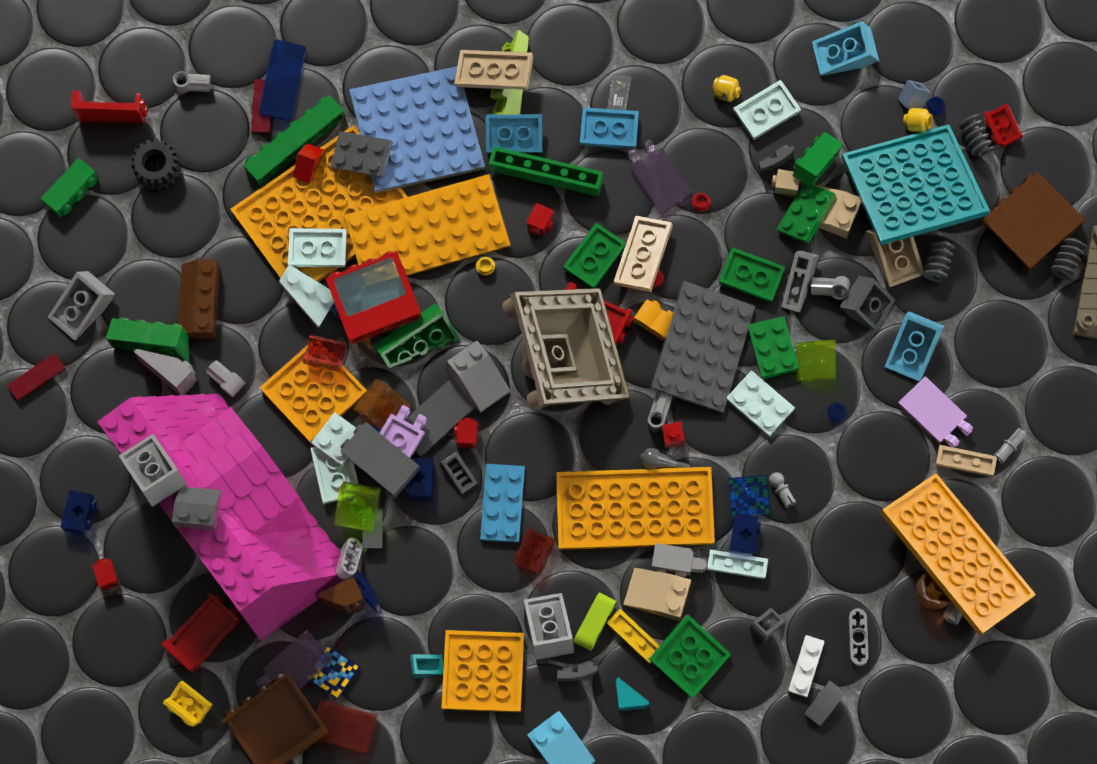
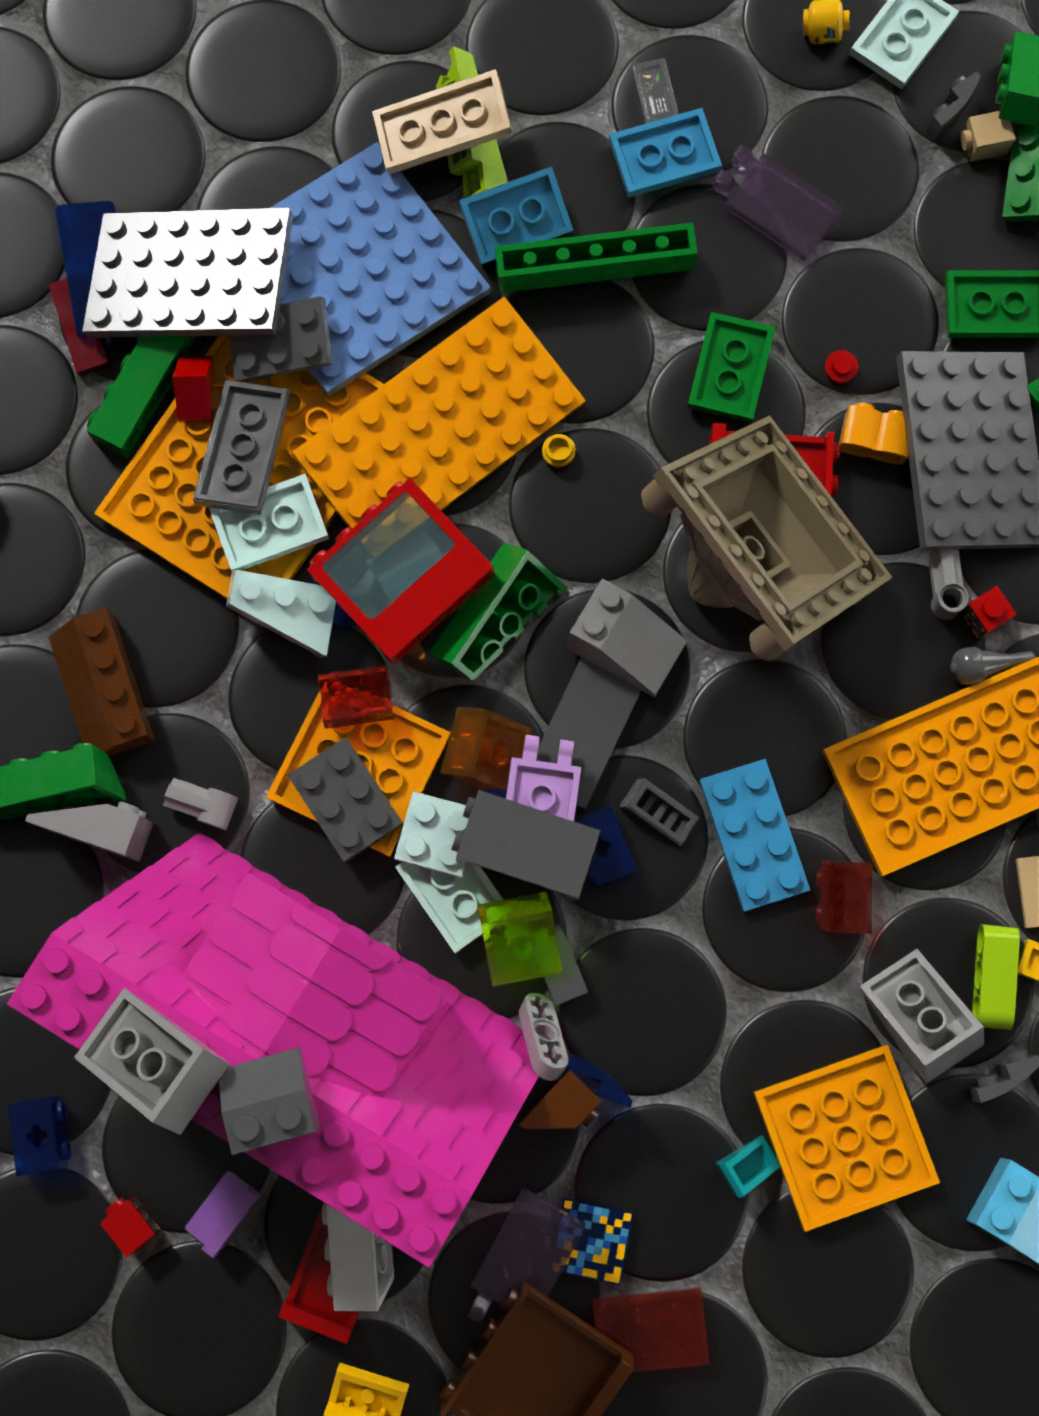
camera: 25 degrees left, 5 degrees up
(154, 587) = (222, 1213): none -> medium lavender panel
(214, 622) = (359, 1263): none -> white brick
(298, 403) = (345, 799): none -> dark grey plate
(319, 203) = (242, 447): none -> dark grey tile
(328, 101) = (189, 273): none -> plate
(466, 433) = (647, 740): red brick -> none
(540, 220) = (618, 341): red brick -> none
(643, 253) = (810, 334): tan plate -> none
(701, 202) = (863, 217): red plate -> none

